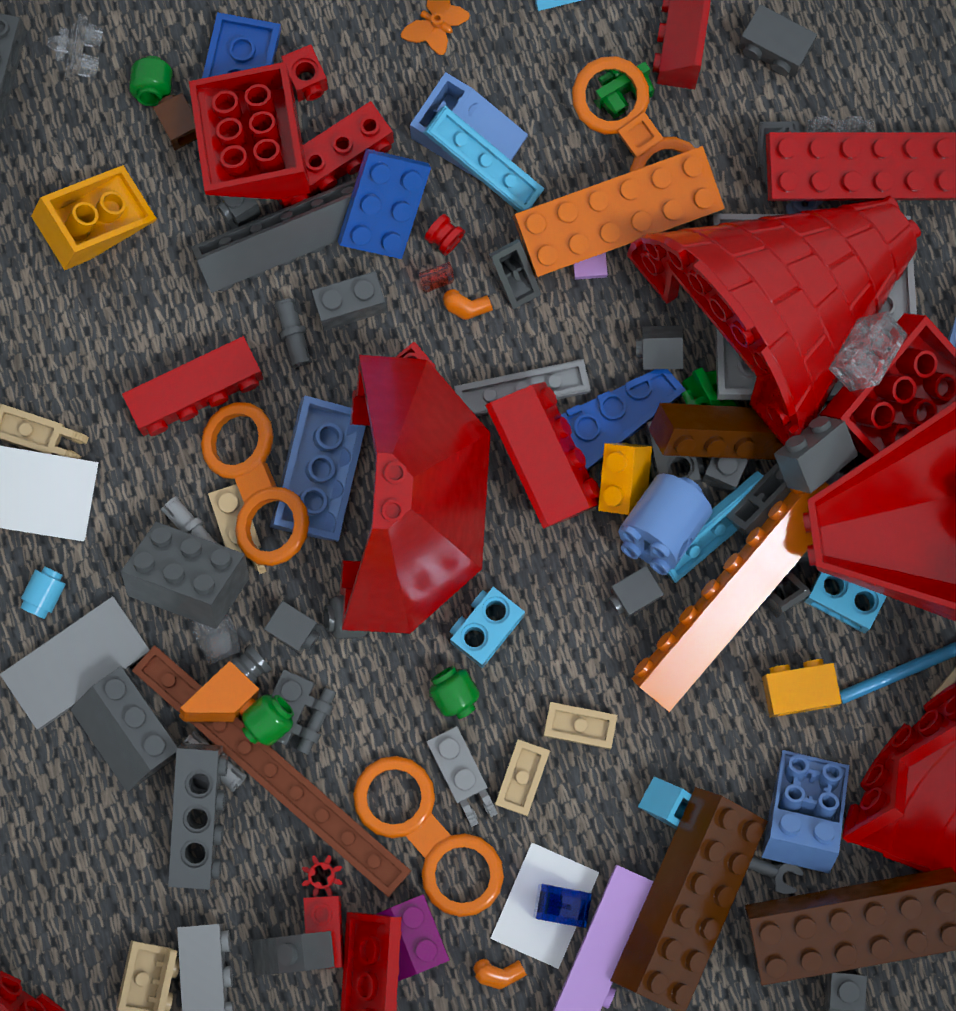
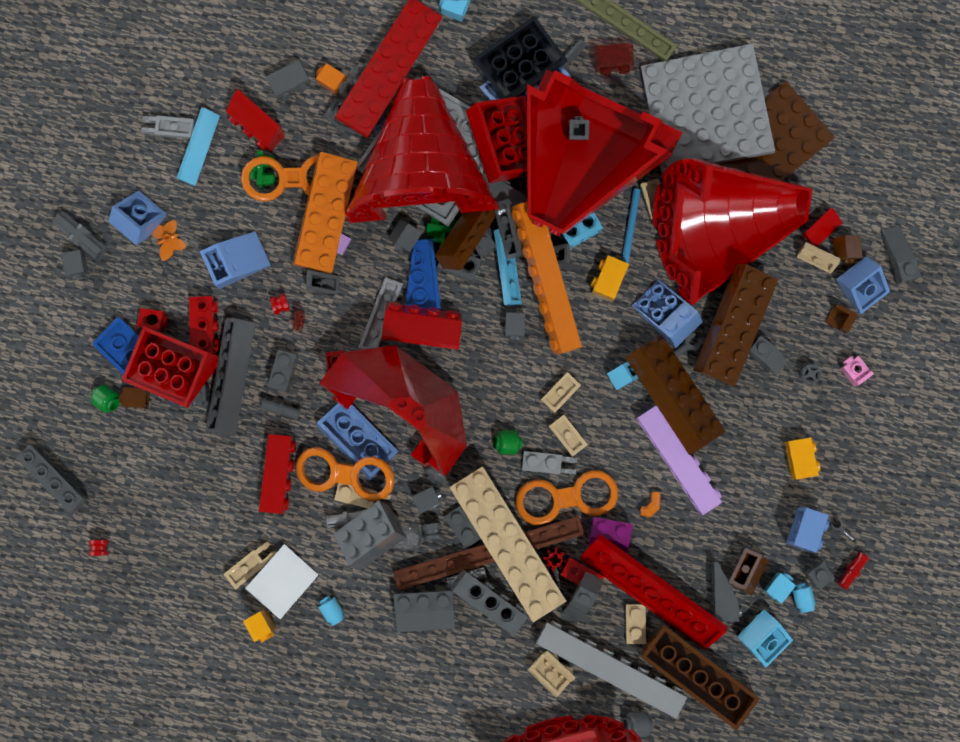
camera: 55 degrees left, 5 degrees up
(73, 661) = (376, 615): light grey tile -> none
(82, 34) = (58, 418): clear hips -> none
(91, 216) = (156, 470): light orange slope -> none
(221, 697) = (440, 554): orange slope -> none
(267, 720) = (465, 539): green head -> none
(299, 788) = (507, 544): none -> tan brick
(384, 203) = (246, 323): blue plate -> none
(465, 308) = (321, 318): orange arm -> none
(483, 160) = (255, 261): medium azure tile -> none
(493, 631) = (490, 405): medium azure brick -> none
(516, 924) = (633, 463): white sticker -> none
(562, 905) = (639, 455): clear blue slope -> none
(623, 476) = (457, 295): light orange brick -> none
(665, 522) = (492, 289): medium blue cylinder -> none
(815, 454) = (508, 198): dark grey brick -> none
(821, 96) = (330, 78): none -> orange brick
(868, 351) = (475, 141): clear brick -> none

